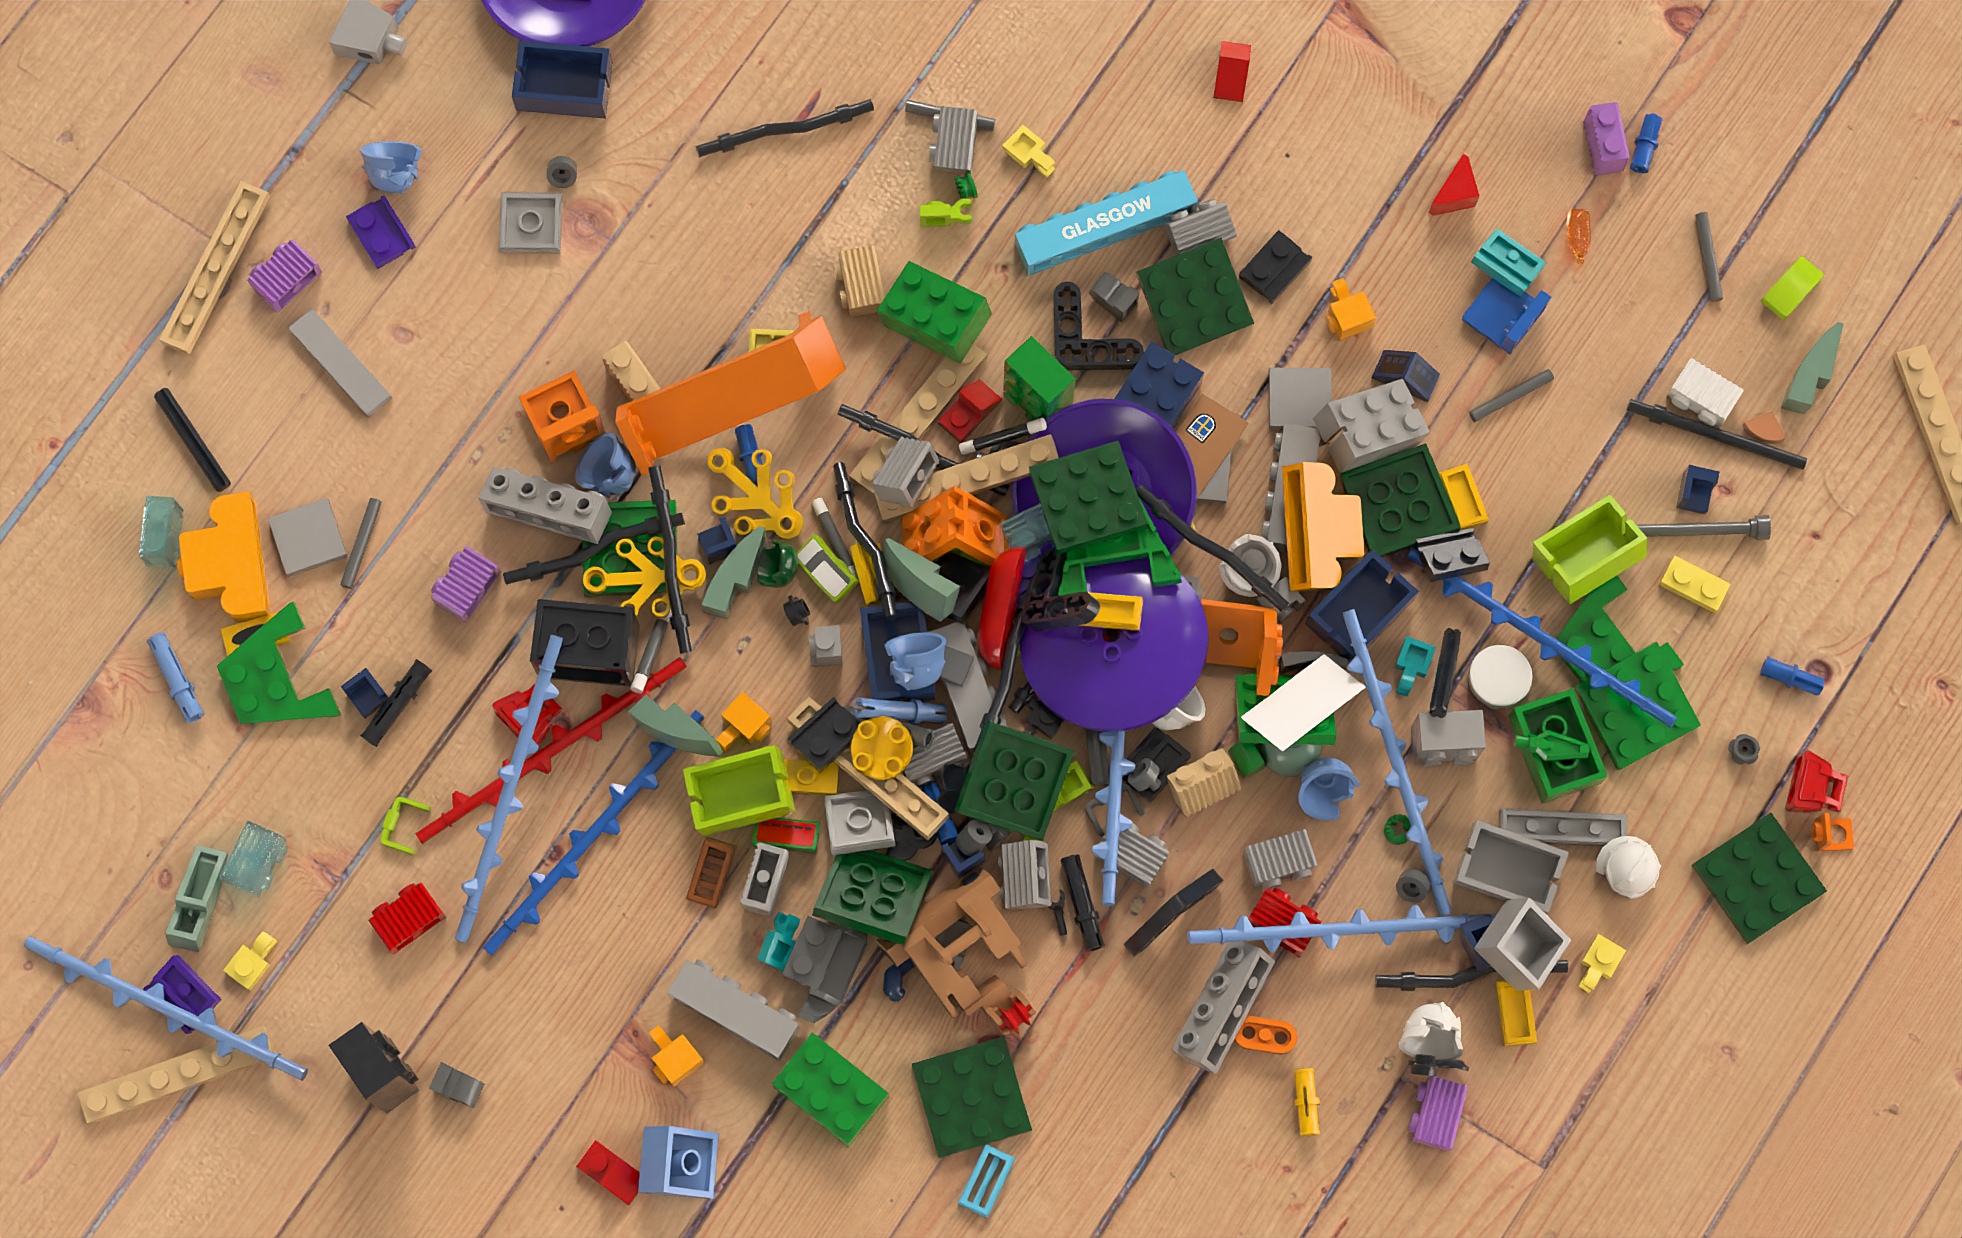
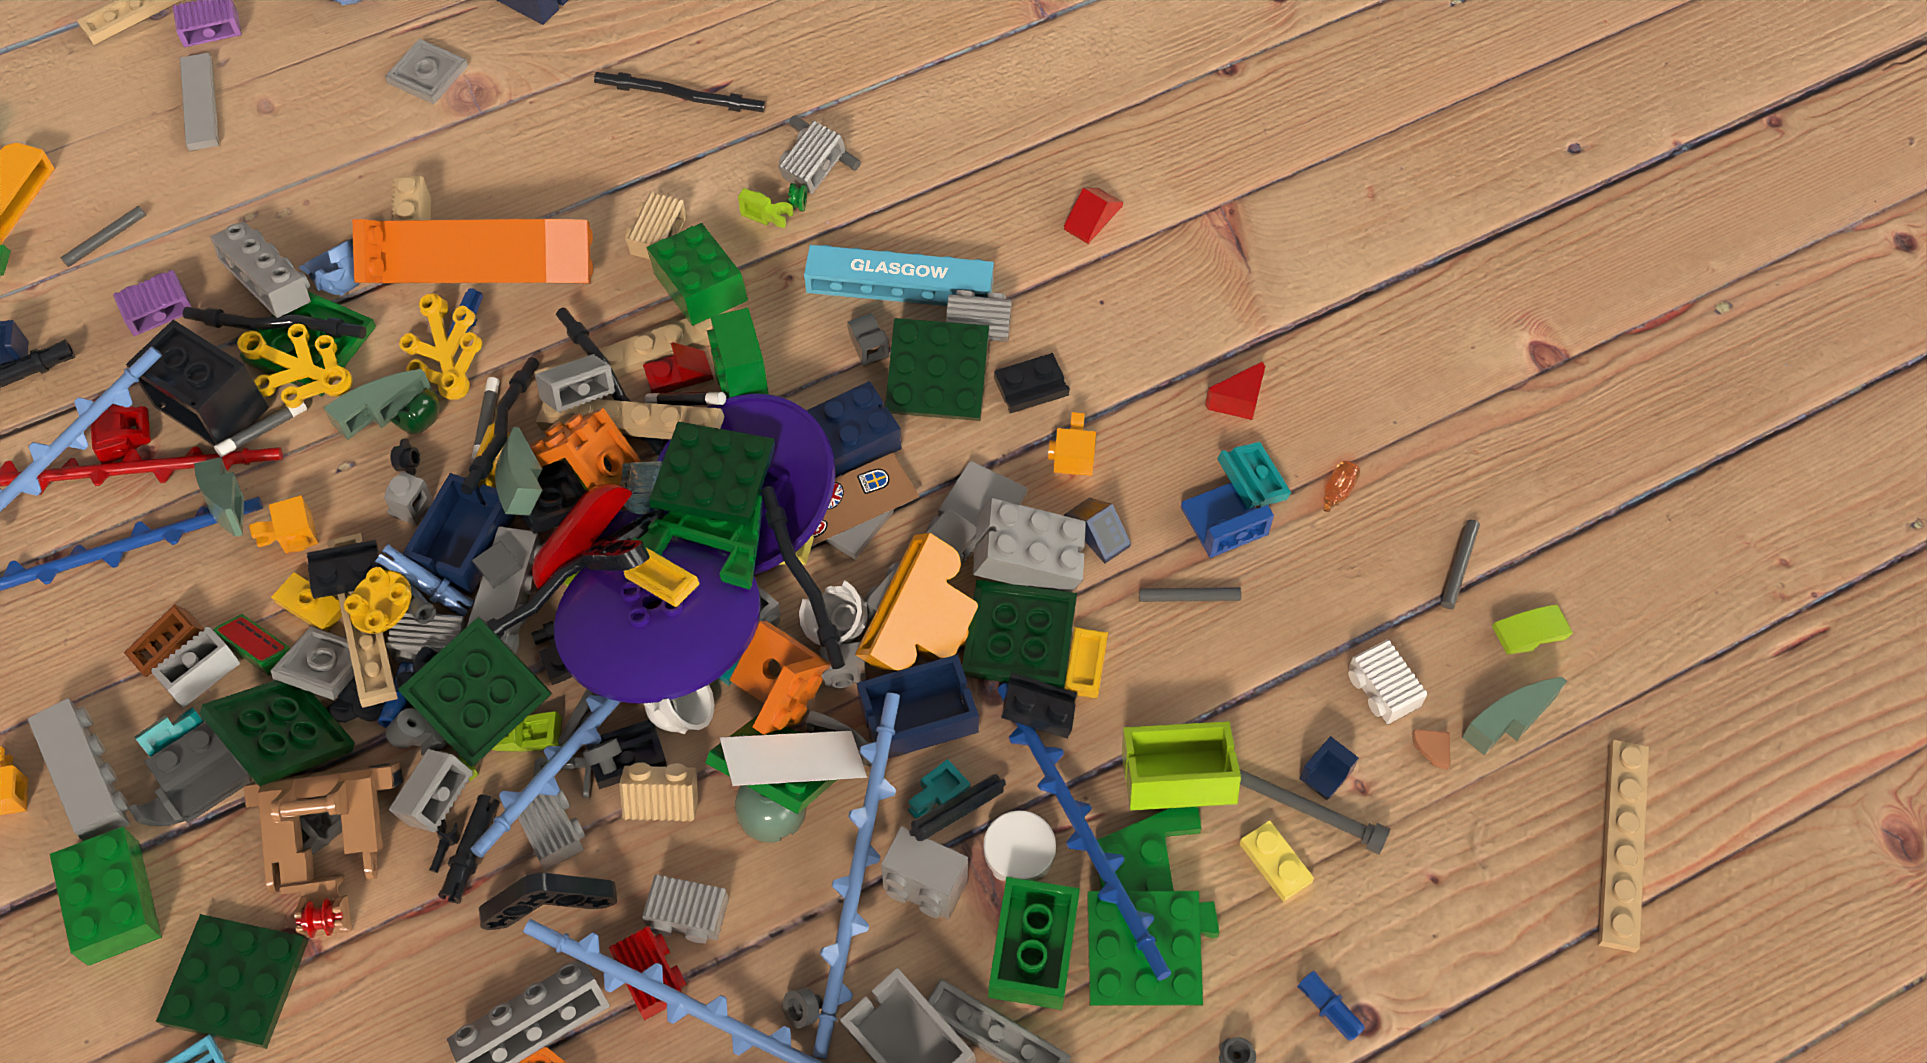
camera: 30 degrees right, 15 degrees down
(192, 439) = (42, 102): black axle -> none
(307, 537) = (66, 212): light grey tile -> none
(380, 232) = (307, 26): dark purple plate -> none
(561, 172) = (476, 43): dark grey tile -> none
(567, 433) = (325, 212): orange bracket -> none
(679, 620) = (297, 412): black bar -> none
(717, 541) = (382, 366): dark blue panel -> none
(739, 790) = (236, 574): lime piece -> none
(825, 569) = (455, 438): slope -> none
(894, 978) = (241, 827): dark blue arm -> none
(916, 659) = (456, 535): medium blue helmet -> none
(959, 862) = (382, 750): dark blue panel -> none
(1027, 149) = (871, 192): light yellow plate -> none
(1076, 343) = (810, 359): black beam -> none
(1247, 759) = (719, 795): green brick -> none
(1325, 783) = (770, 858): medium blue helmet -> none
(1389, 832) = (825, 933): green bush -> none
(1552, 746) = (1022, 934): green piece -> none
(1606, 138) = (1411, 413): medium lavender brick -> none
(1646, 143) = (1450, 438): blue axle -> none
(1659, 414) = (1329, 681): black bar -> none

